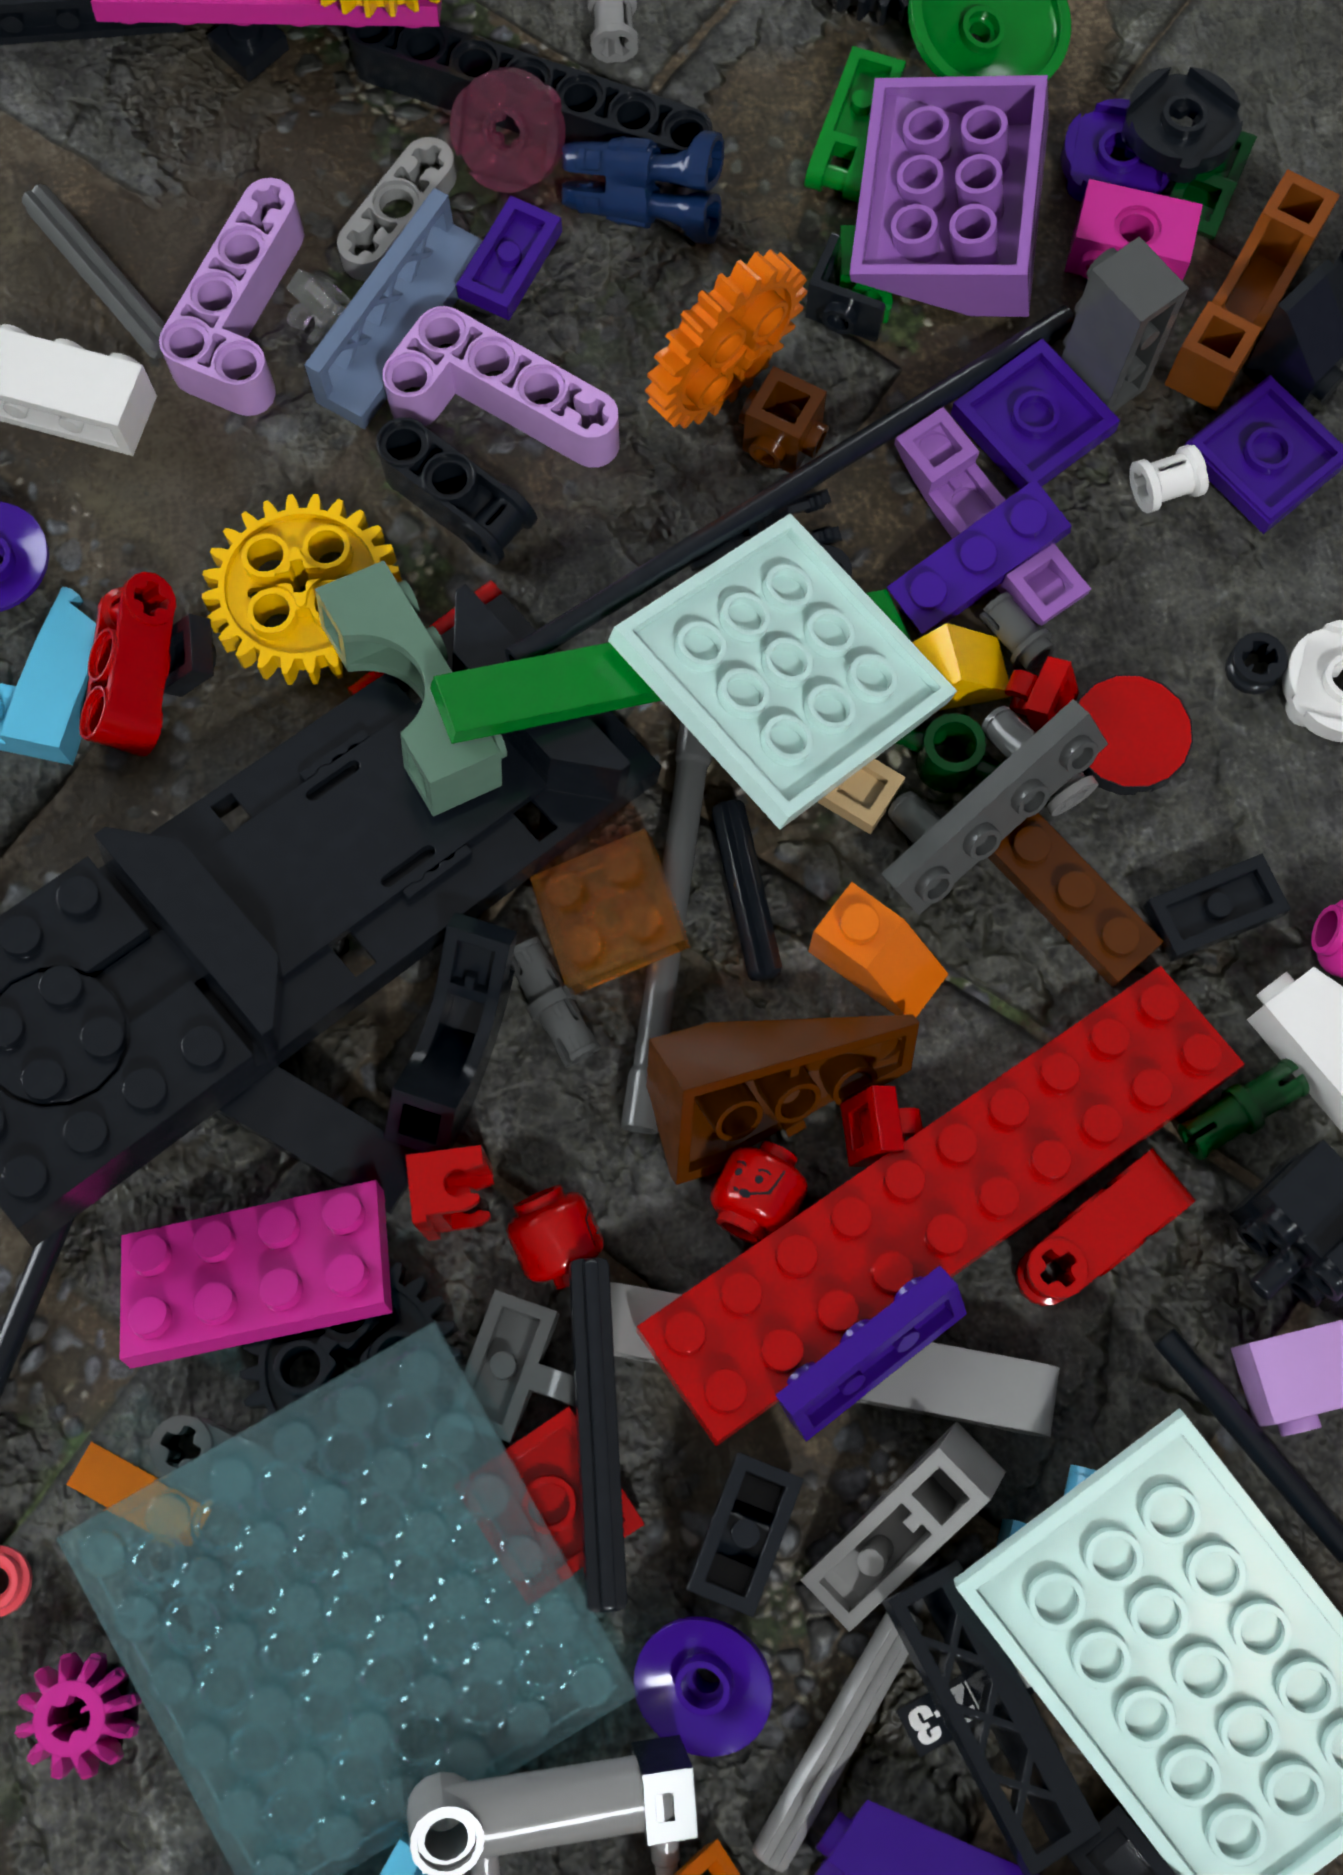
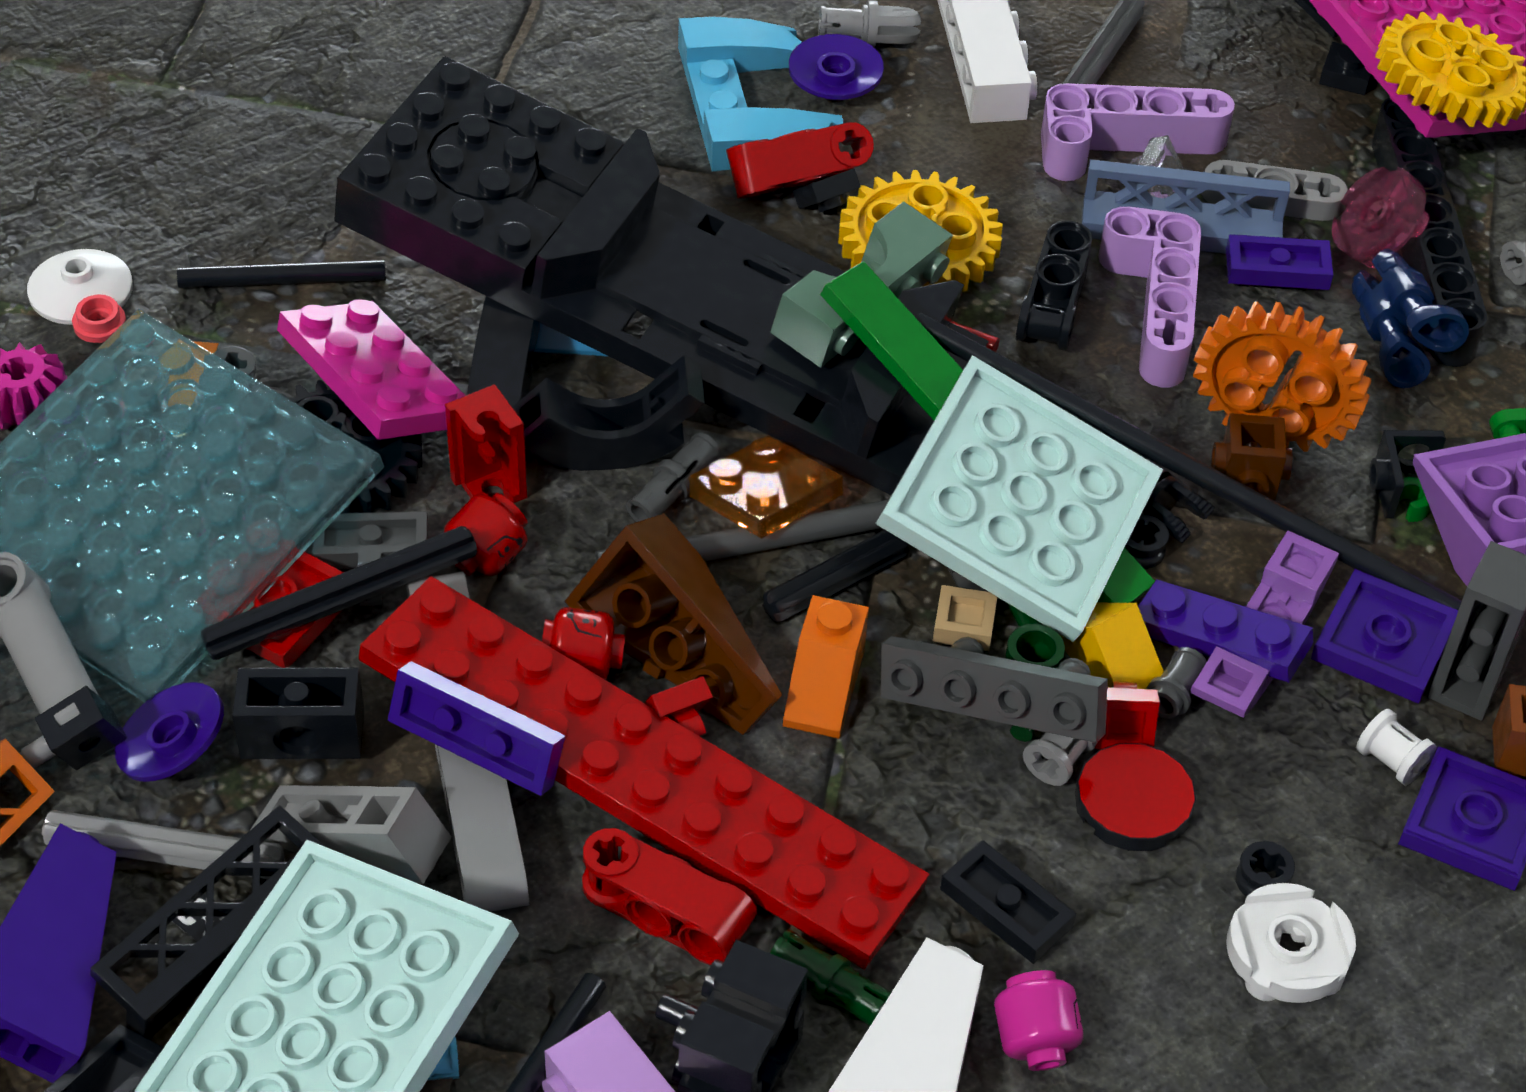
camera: 65 degrees right, 25 degrees down
(1075, 899) = (959, 797): reddish brown plate -> none

